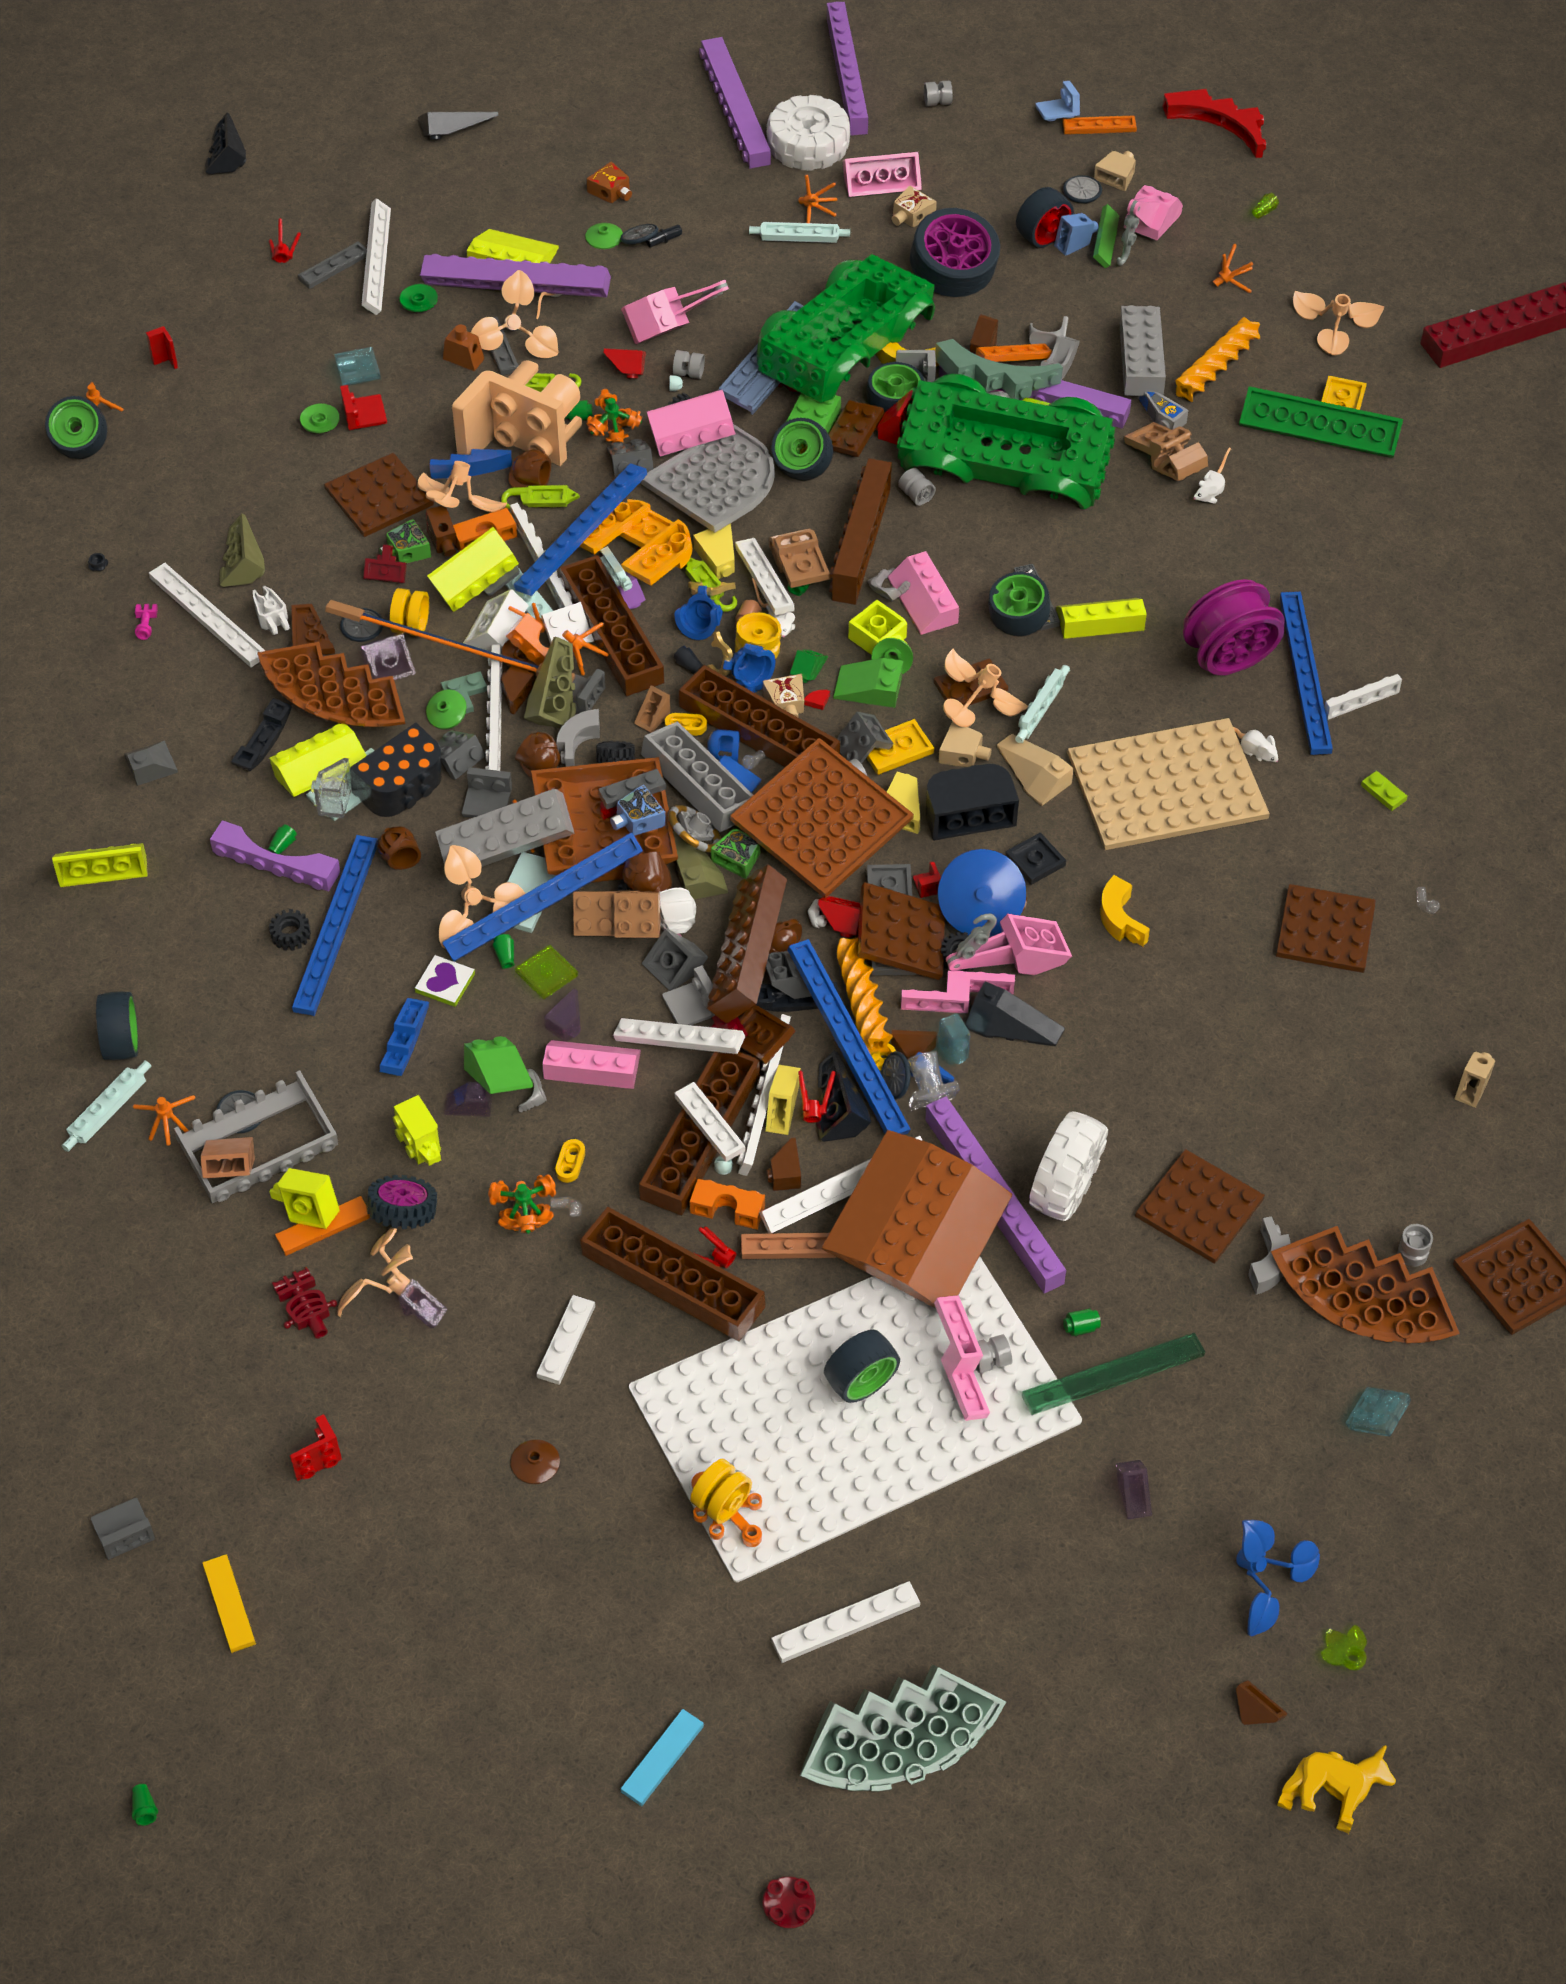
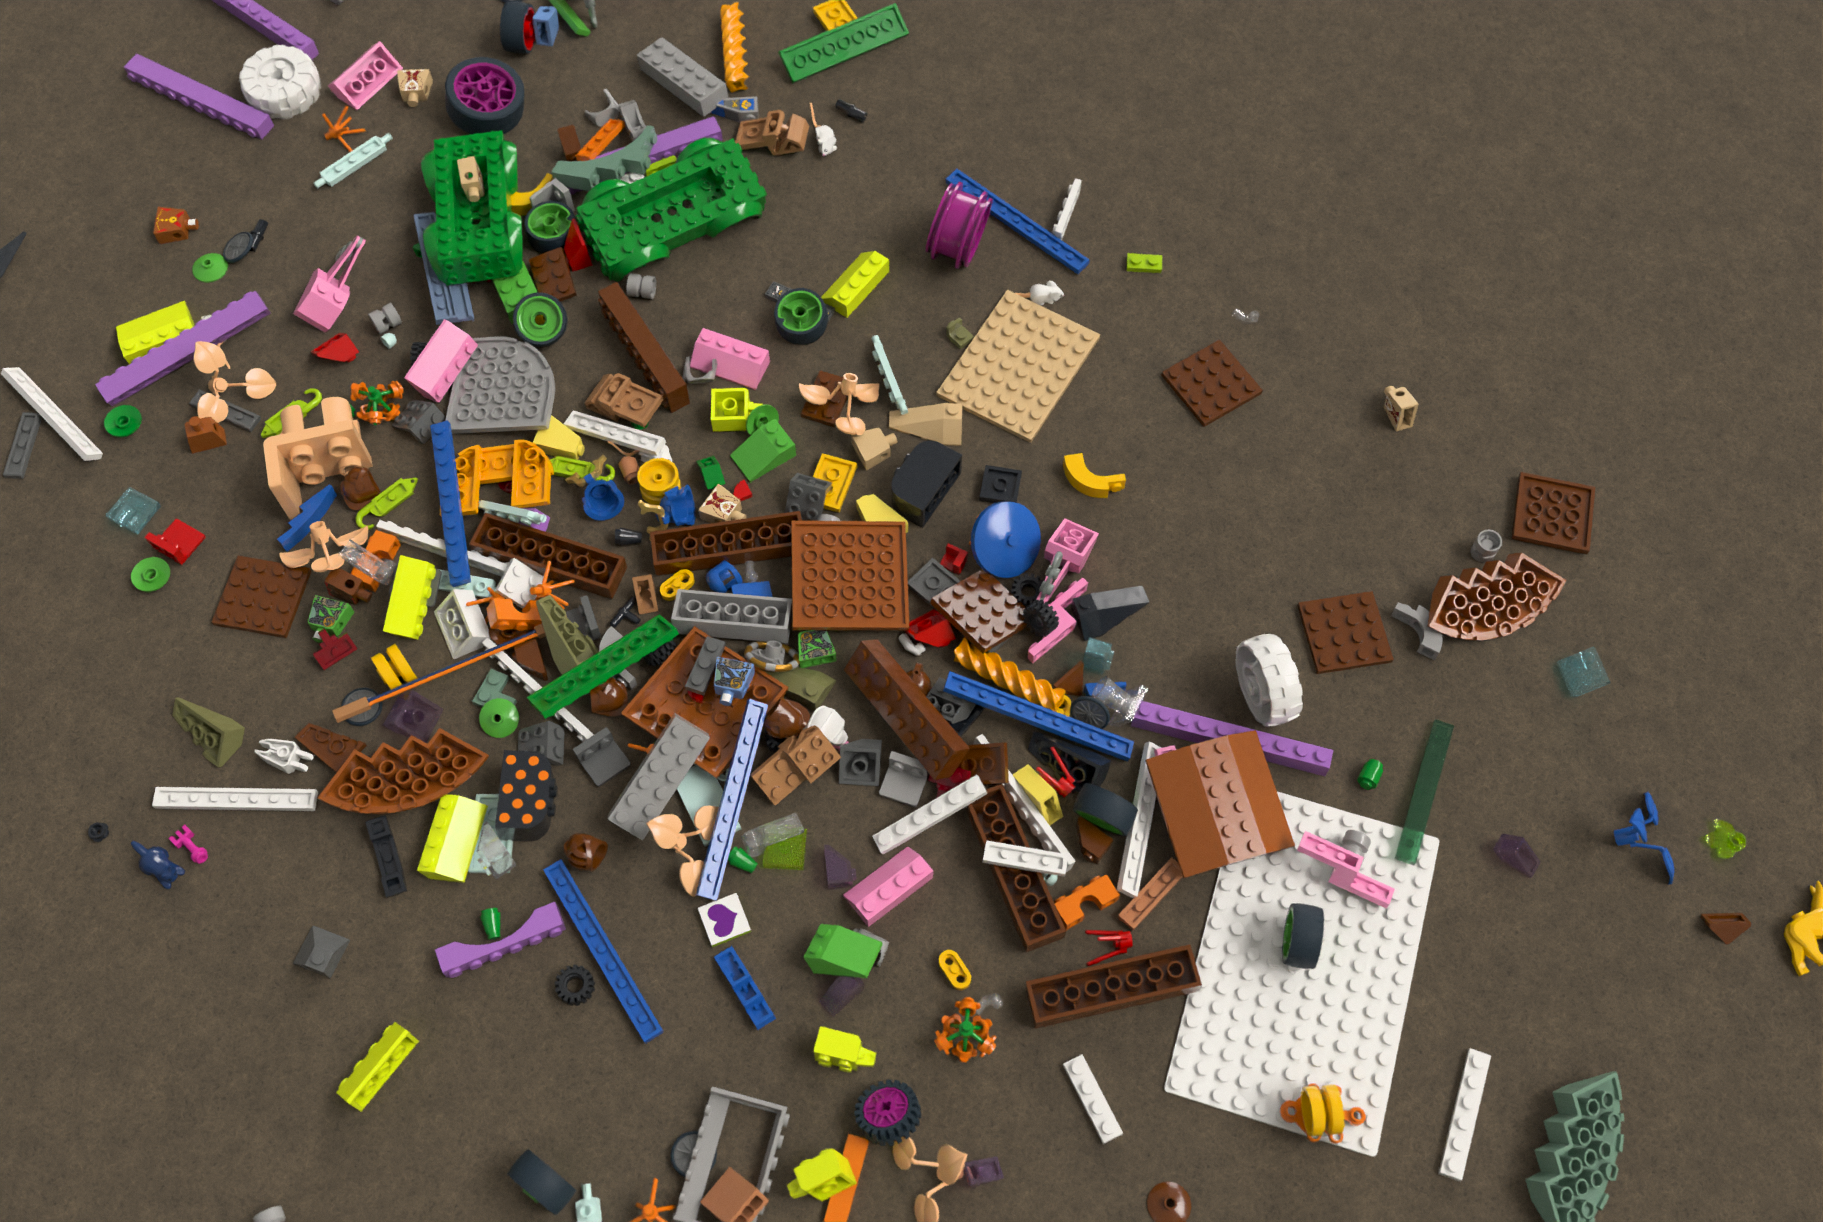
camera: 45 degrees left, 10 degrees up
(110, 613) = (156, 862): none -> dark blue animal
(470, 517) = (368, 563): none -> clear plate
(546, 949) = (771, 833): none -> clear plate
(555, 726) = (602, 666): none -> green plate
(623, 712) = (625, 612): none -> black piece
(817, 1145) = (1105, 809): none -> black wheel
(863, 300) = (472, 186): none -> tan torso
(938, 971) = (1040, 618): none -> black tyre
(1143, 718) = (958, 334): none -> olive bracket
(1263, 481) = (851, 110): none -> black axle

